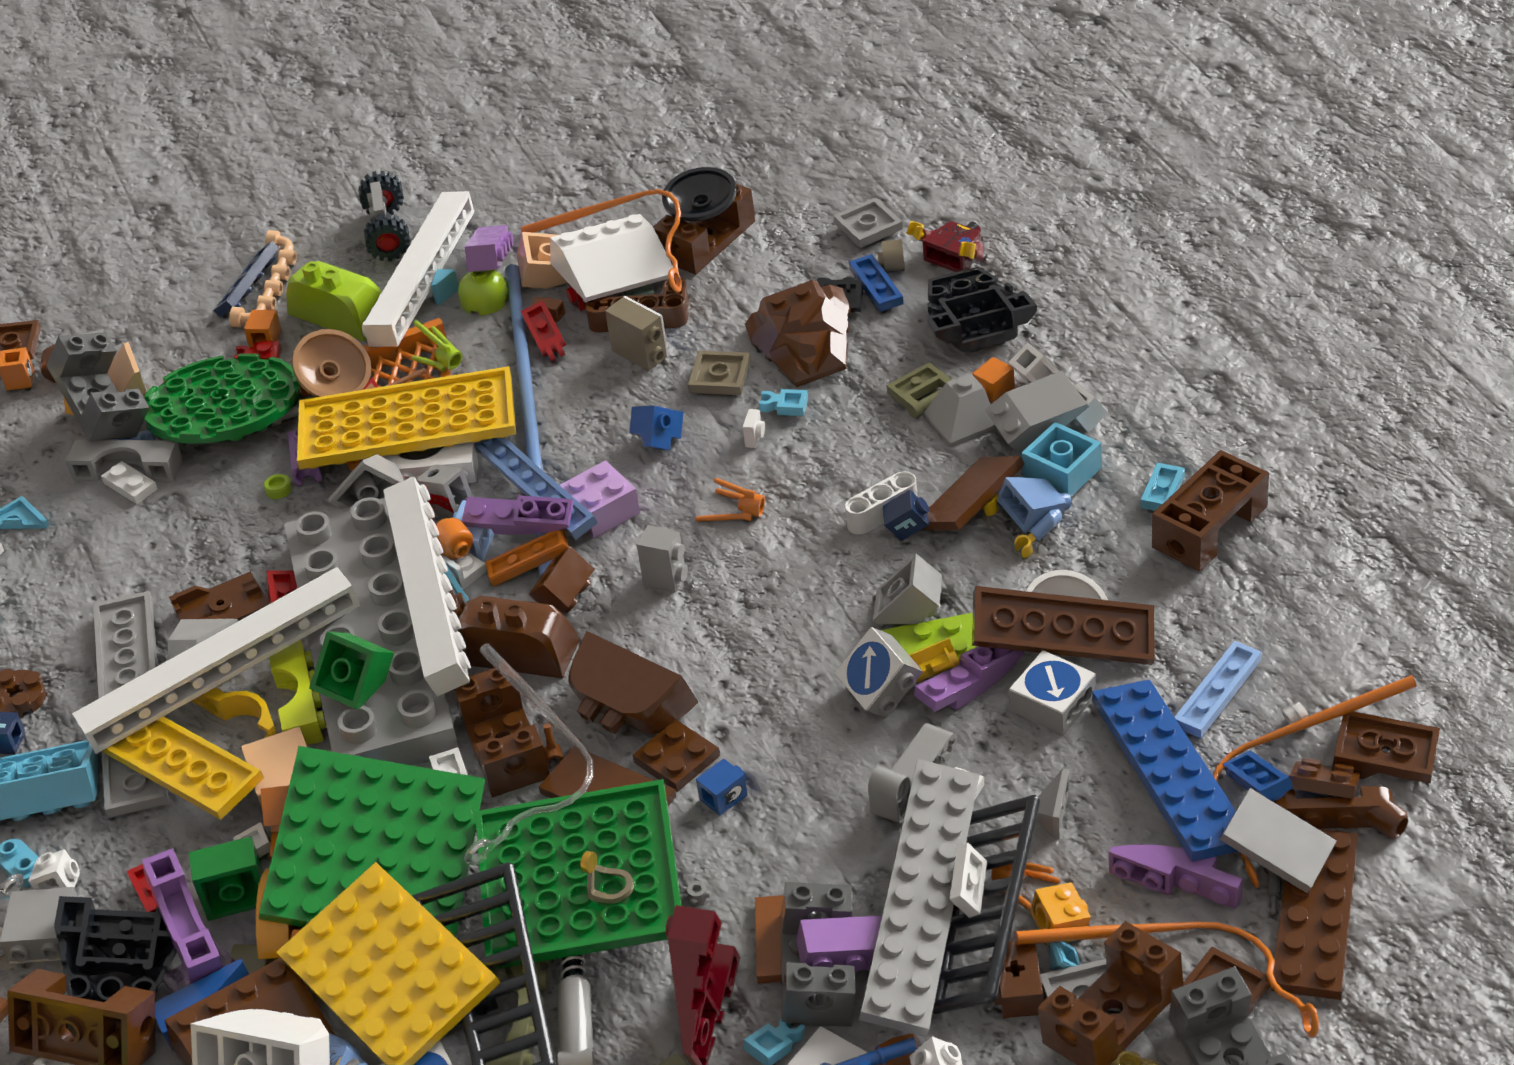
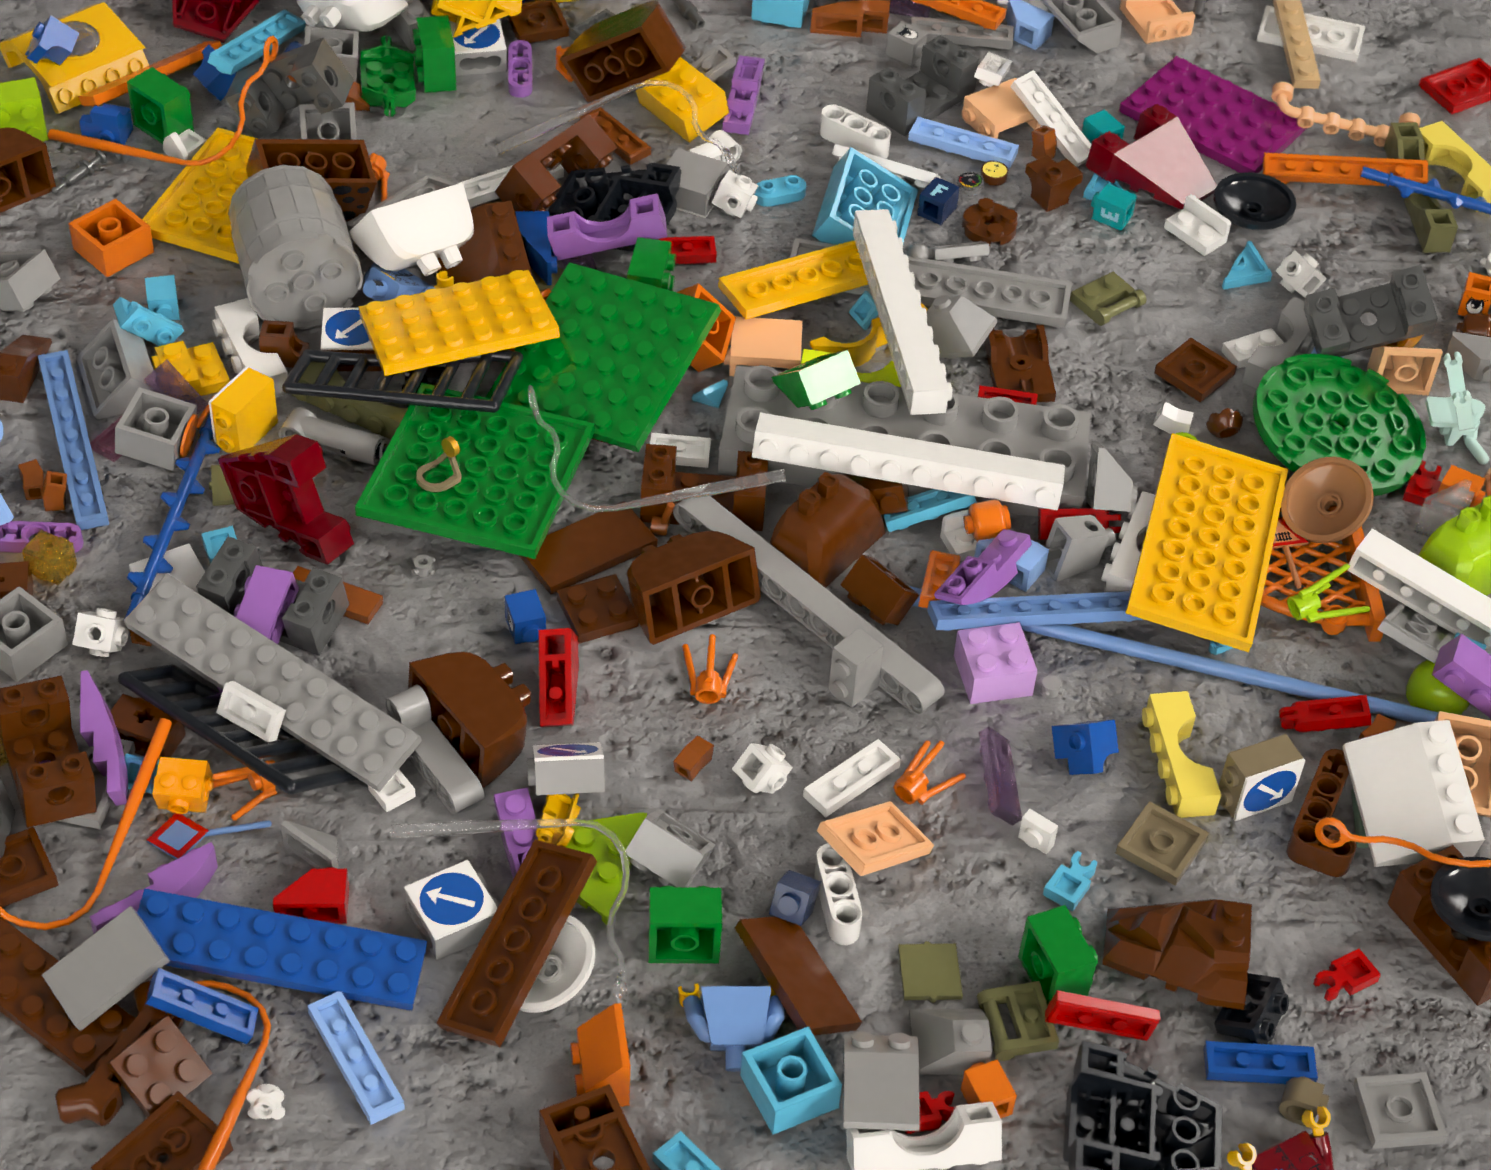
camera: 105 degrees right, 5 degrees up
(24, 471) = (1300, 274): none -> white brick
(72, 690) = (970, 251): none -> light grey plate
(89, 589) = (1104, 292): none -> olive plate
(178, 502) = (1195, 369): none -> reddish brown plate
(181, 337) = (1458, 413): none -> light aqua piece
(193, 721) = (864, 310): none -> medium azure slope
(243, 464) = (1225, 424): none -> reddish brown plate
(250, 496) = (1173, 419): none -> white piece
(295, 318) = (1443, 507): none -> clear slope
(446, 298) = (1415, 631): none -> light grey tile
(599, 617) = (814, 604): none -> light grey beam
(603, 398) = (1189, 786): none -> light yellow arch
(712, 465) = (1000, 776): none -> clear purple plate
(722, 646) = (708, 686): none -> orange plant
(765, 537) = (851, 778): none -> white plate
(771, 736) = (558, 676): none -> red slope
(775, 265) = (1349, 972): none -> red plate
(795, 576) = (762, 768): none -> white brick
(804, 628) = (693, 758): none -> dark orange piece
(820, 496) = (875, 838): none -> light nougat tile
(852, 746) = (475, 709): none -> reddish brown hips
(867, 372) = (1057, 953): none -> green brick
(897, 345) = (1102, 1015): none -> red tile
(909, 447) = (930, 971): none -> olive piece
(967, 693) = (490, 826): none -> clear piece
(977, 551) = (684, 925): none -> green brick
(1063, 970) = (101, 732): none -> medium lavender slope
(1102, 776) = (316, 896): none -> red slope
(1104, 905) = (181, 834): none -> piece
(1119, 548) = (603, 1054): none -> orange slope

